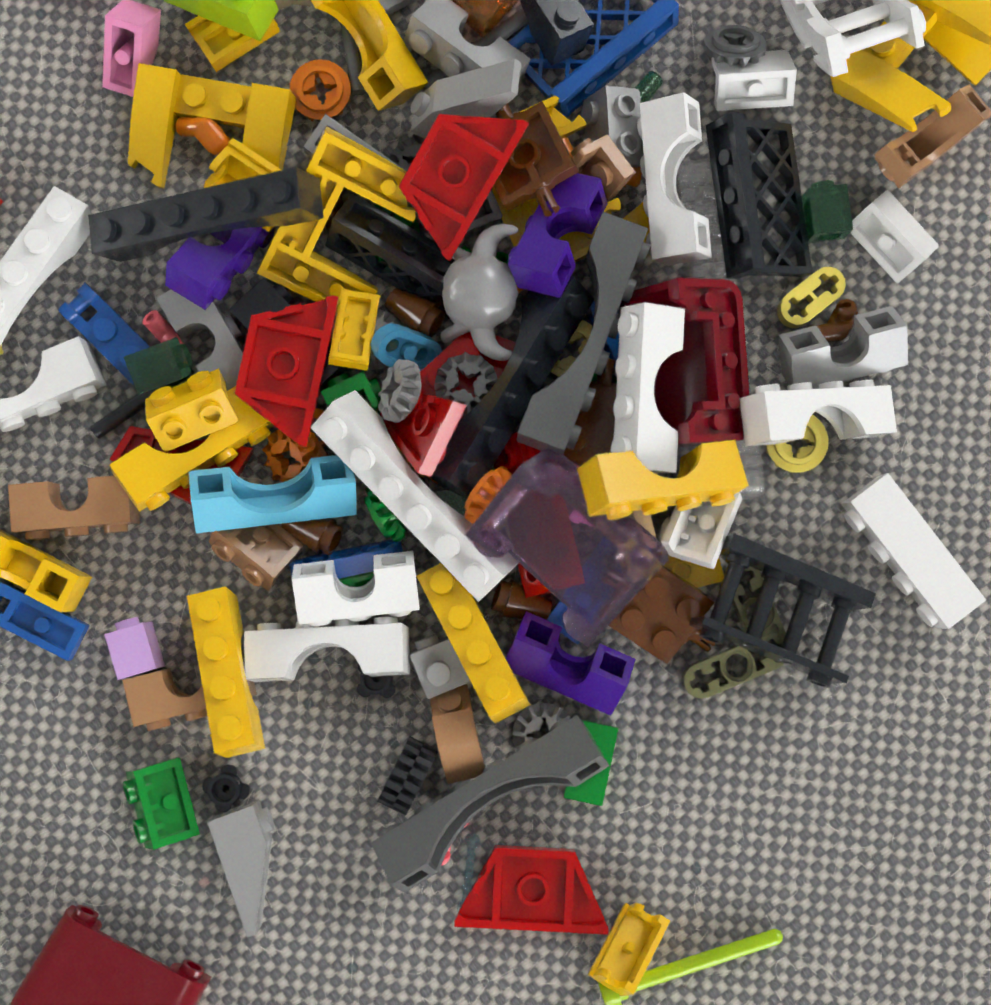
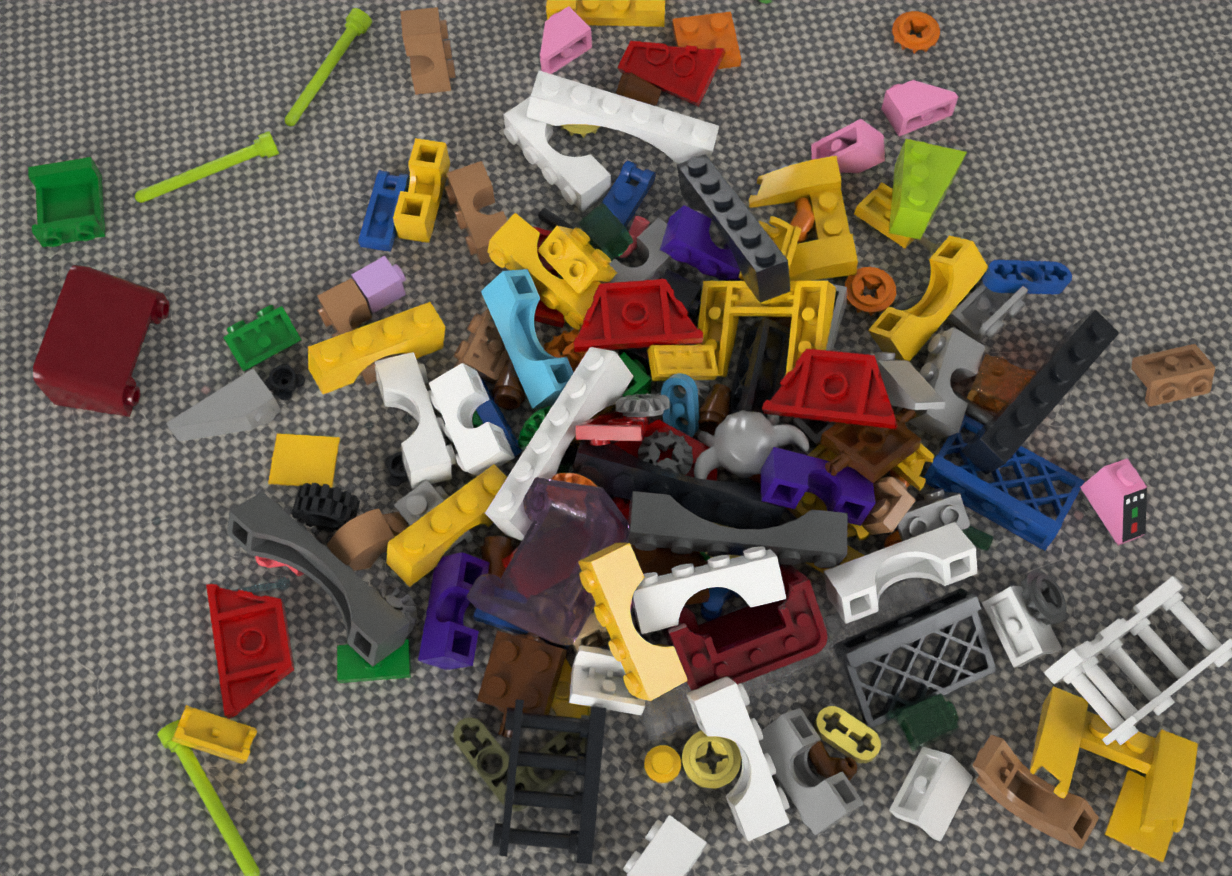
camera: 75 degrees right, 20 degrees down
(330, 786) = (304, 460): none -> yellow window
(787, 492) = (662, 764): none -> yellow plate

